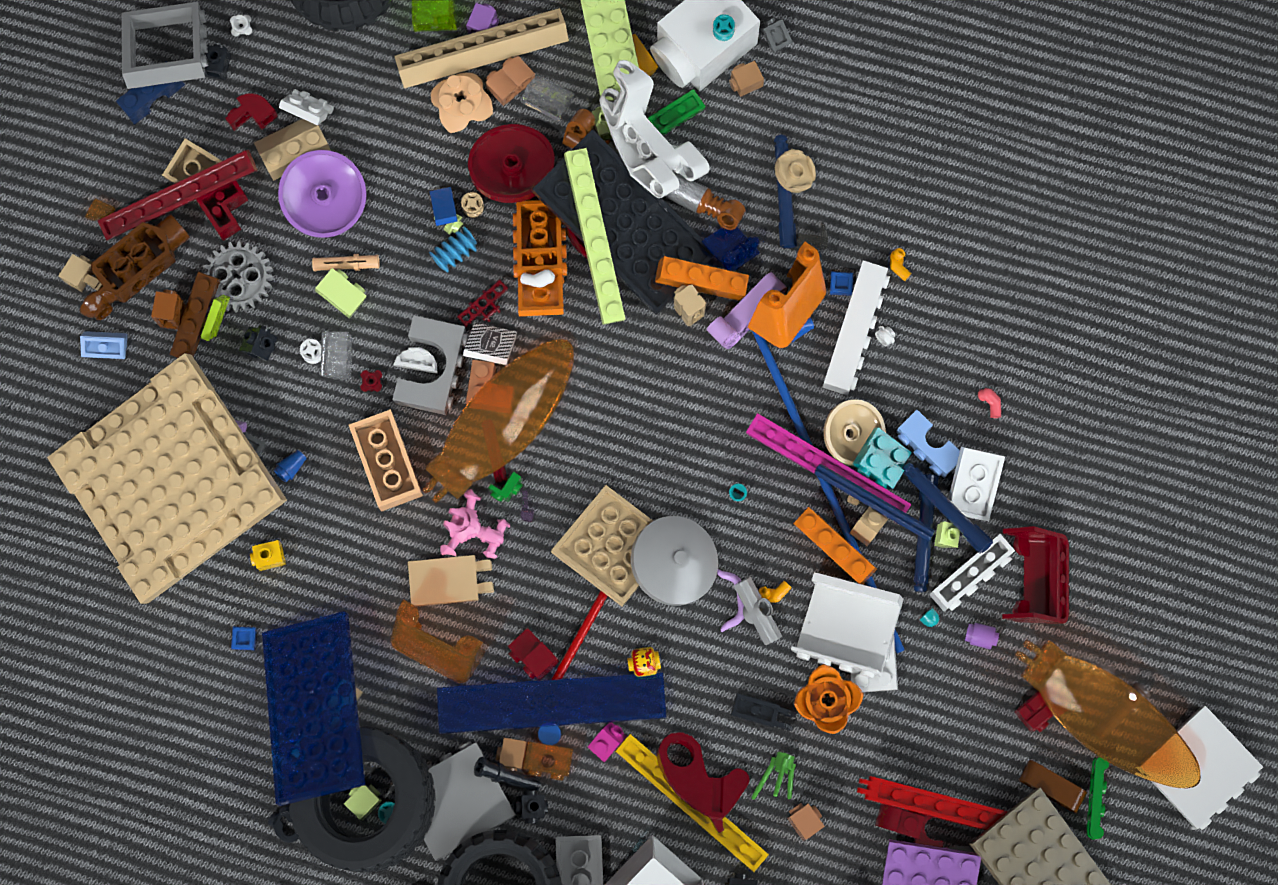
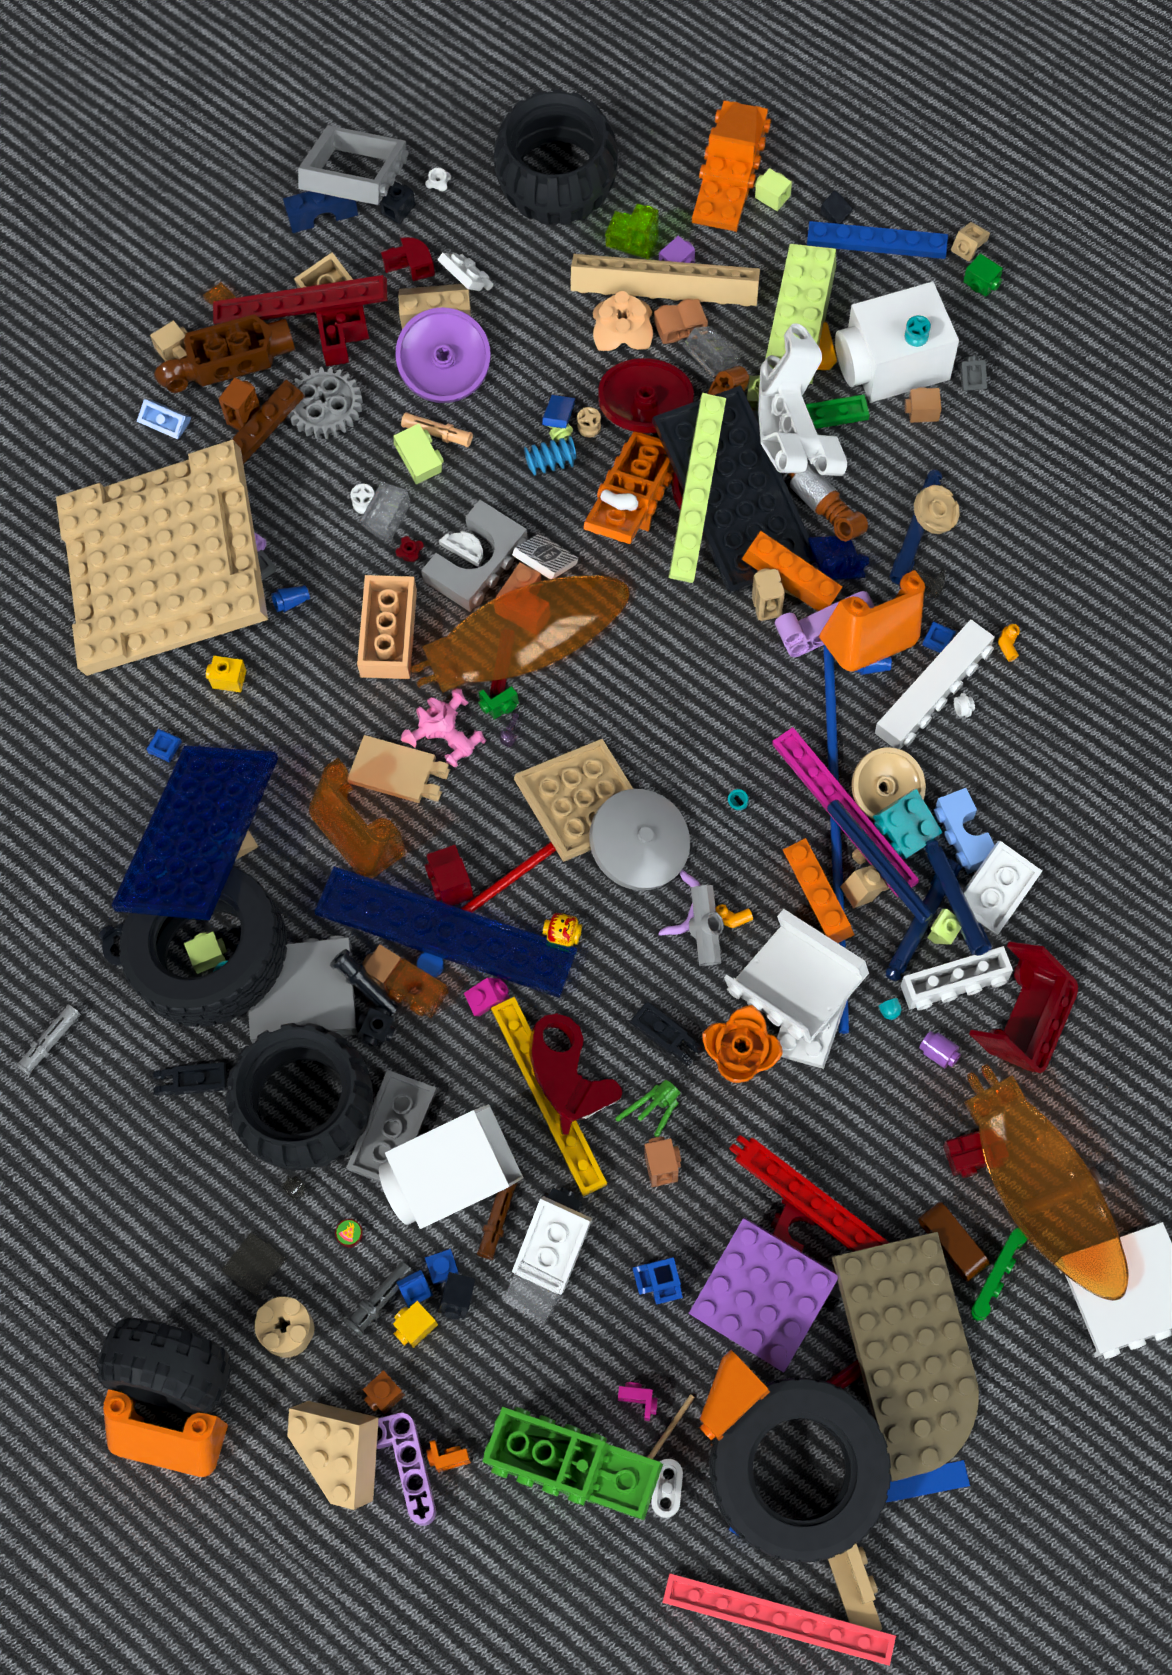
camera: 25 degrees right, 10 degrees down
(215, 317) = (282, 429): lime tile -> none
(258, 343) = (314, 469): black brick -> none
(490, 301) = (564, 517): dark red piece -> none
(899, 821) = (763, 1203): dark red brick -> none
(993, 400) = (1054, 813): coral arm -> none

